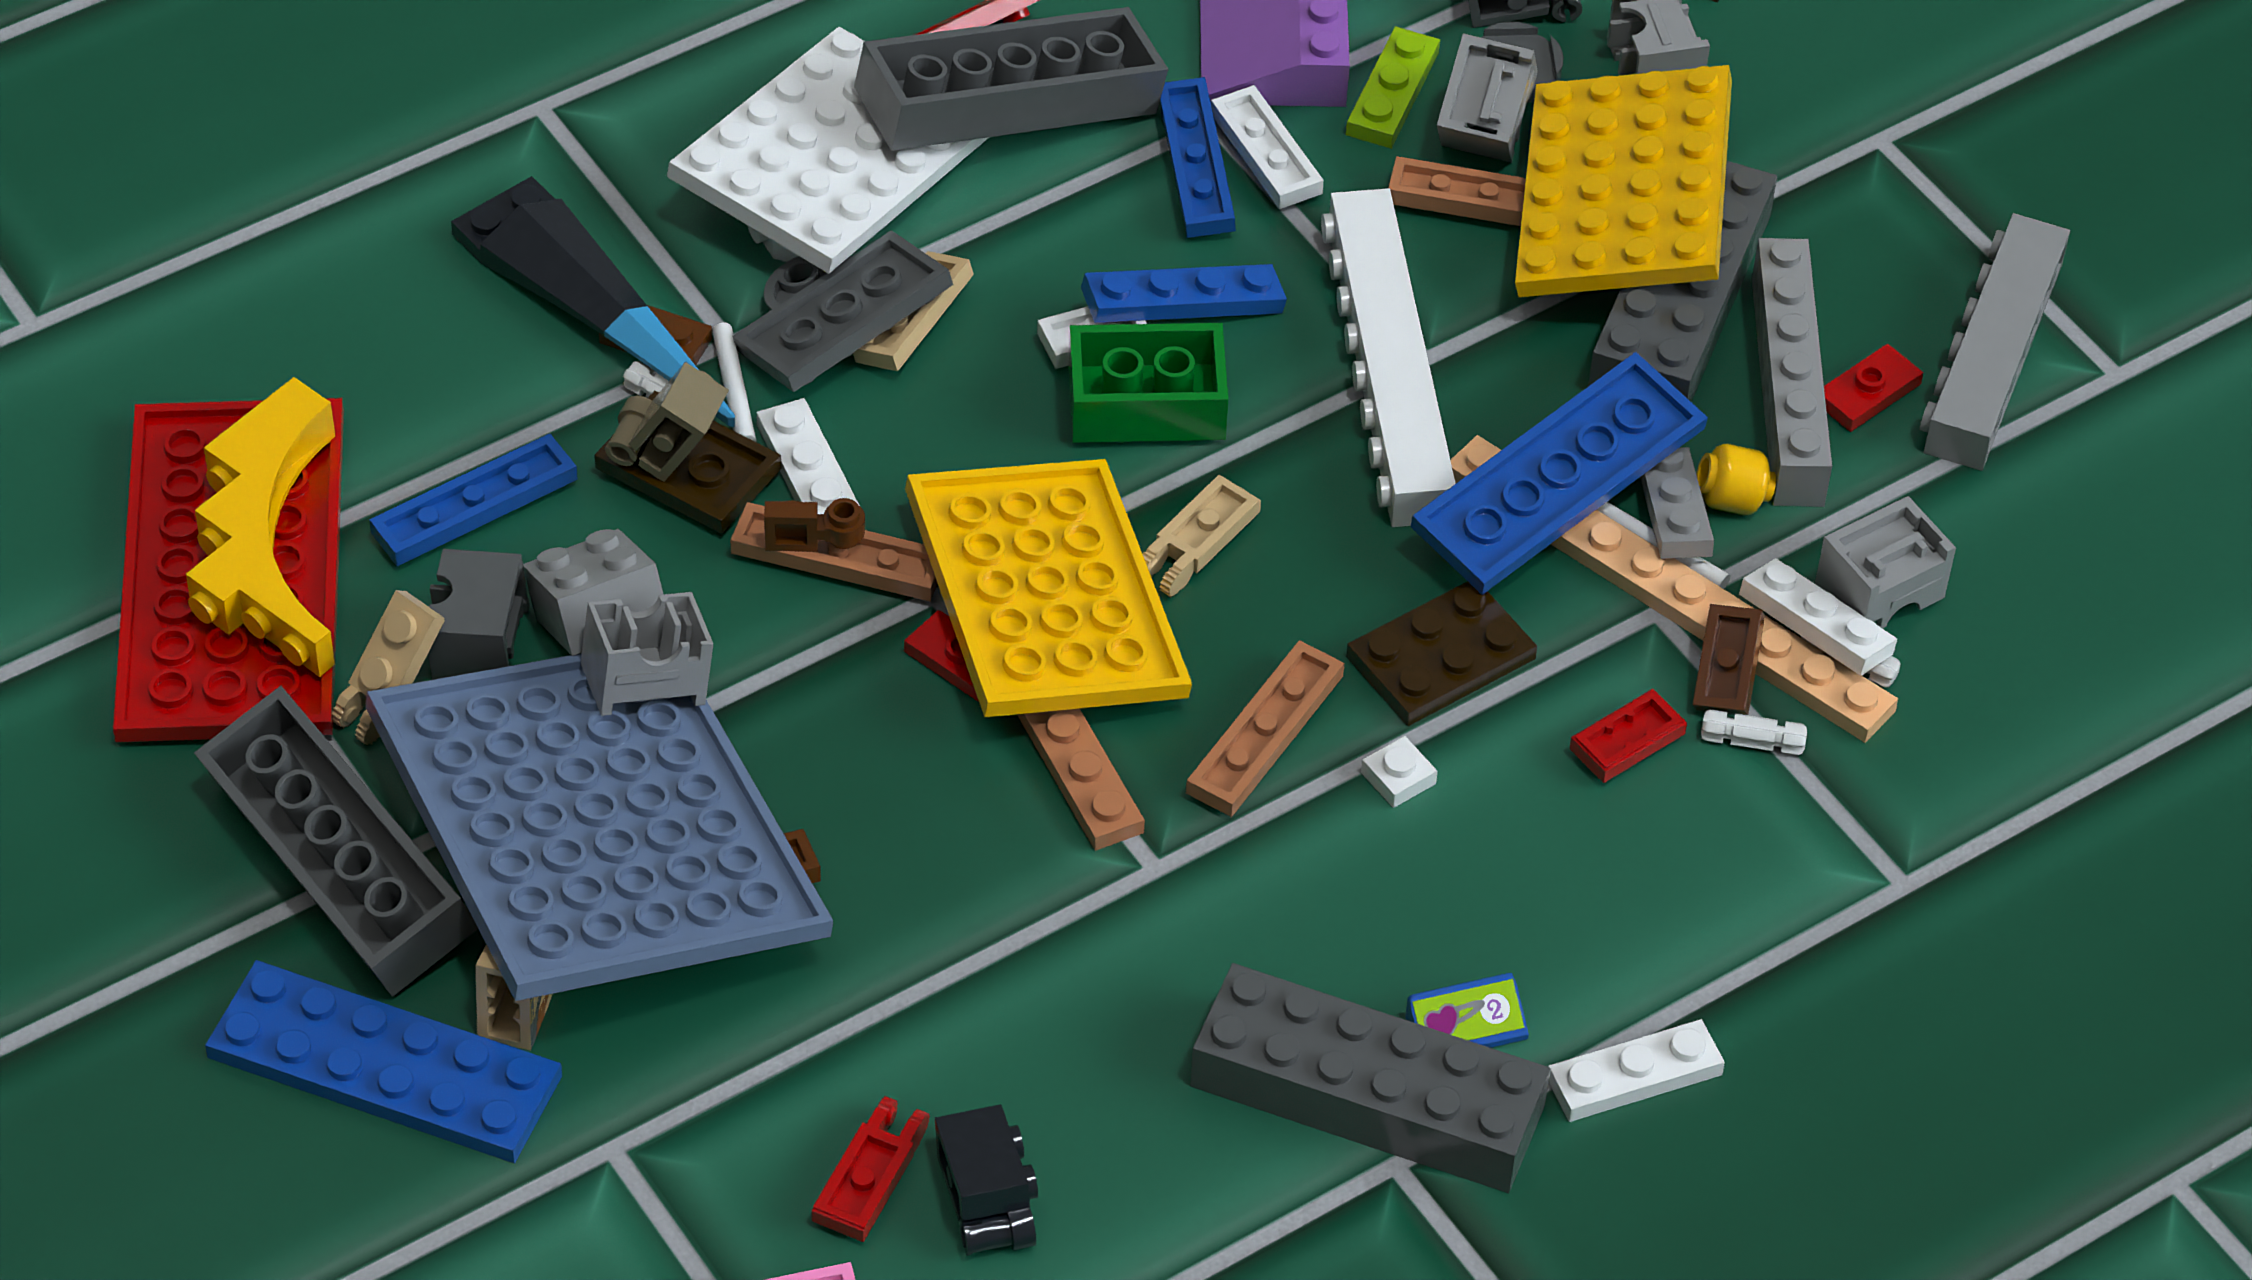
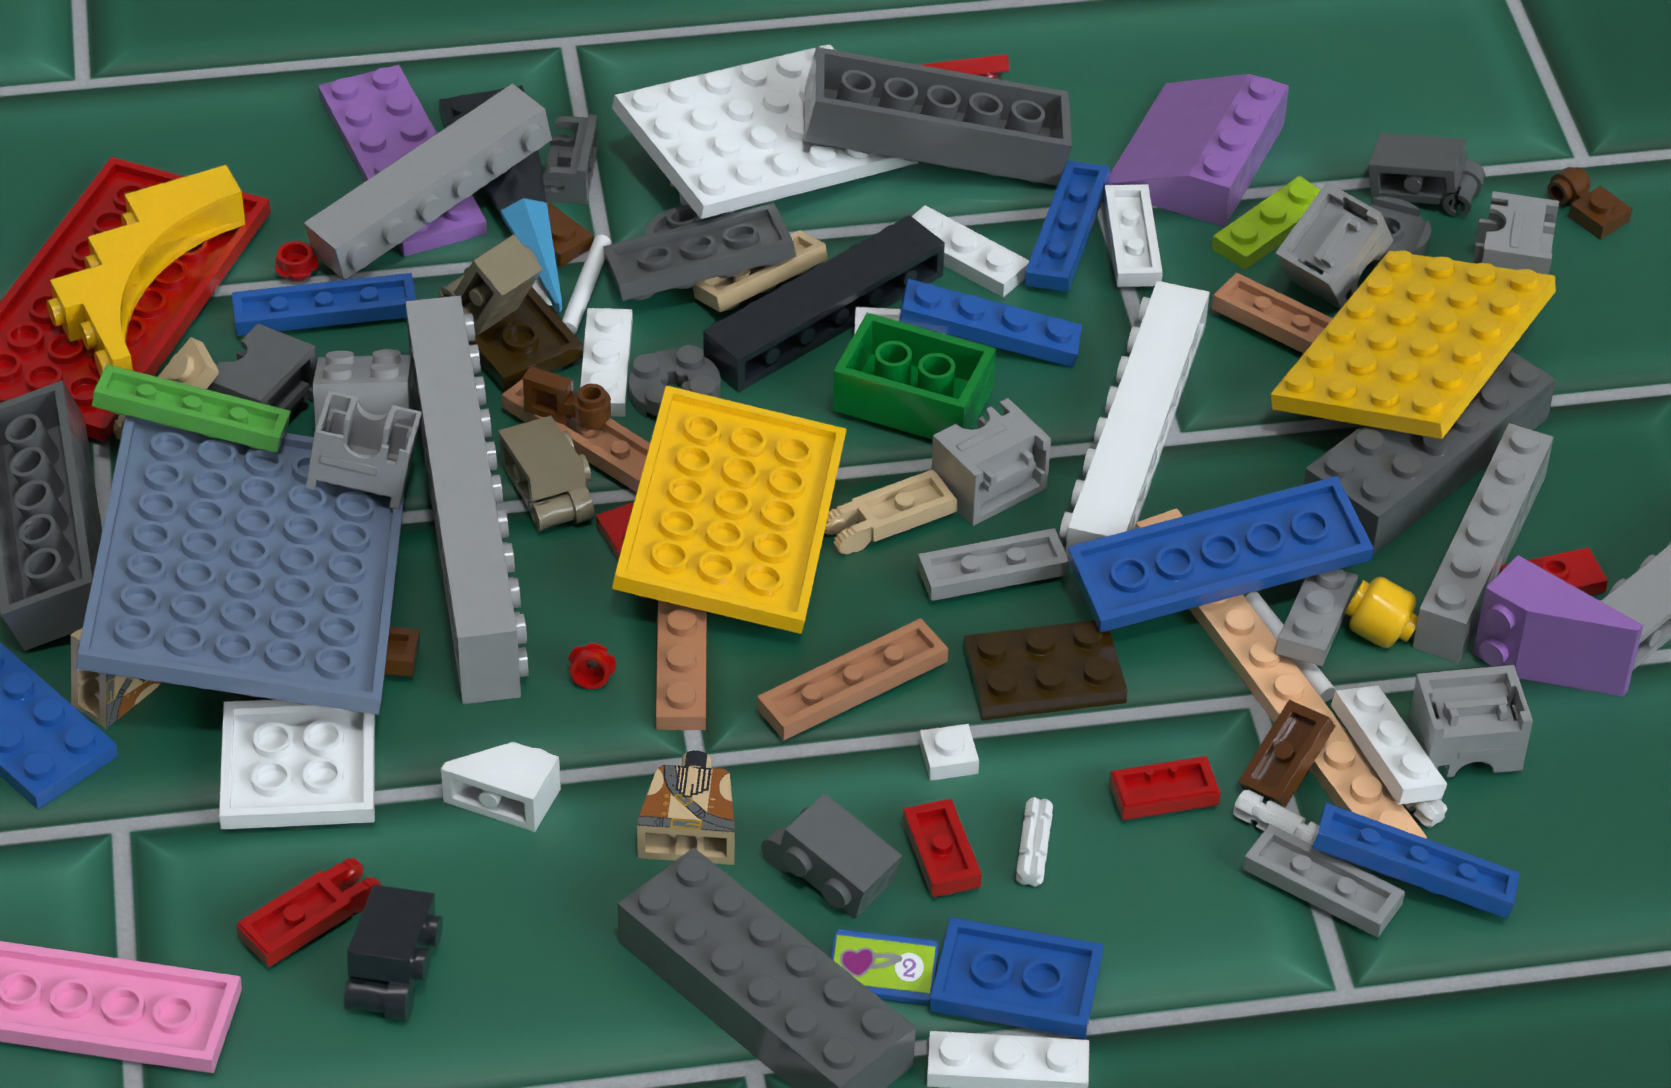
camera: 25 degrees right, 5 degrees down
(410, 459) = (295, 261): none -> red plate
(440, 670) = (191, 408): none -> bright green plate
(449, 304) = (381, 124): none -> medium lavender plate
(518, 325) = (428, 181): none -> light grey brick
(638, 244) = (571, 160): none -> dark grey hinge
(762, 1021) = (295, 765): none -> white plate
(780, 676) = (465, 501): none -> light grey brick
(830, 611) = (547, 472): none -> dark tan hinge
(887, 446) = (667, 367): none -> dark grey plate
(989, 963) = (504, 783): none -> white slope
(997, 805) = (590, 675): none -> red plate
(998, 326) = (822, 303): none -> black brick
(1102, 219) = (974, 254): none -> white plate
(1192, 926) = (688, 810): none -> torso
(1277, 446) = (992, 464): none -> light grey piece
(1332, 557) = (993, 564): none -> light grey plate
(1357, 919) = (834, 855): none -> dark grey hinge
(1453, 874) = (941, 847): none -> red plate
(1535, 836) = (1034, 842): none -> white axle
(1600, 981) = (1017, 977): none -> blue plate
(1827, 777) = (1323, 880): none -> light grey plate
(1906, 726) = (1416, 860): none -> blue plate
(1916, 446) = (1555, 632): none -> medium lavender slope

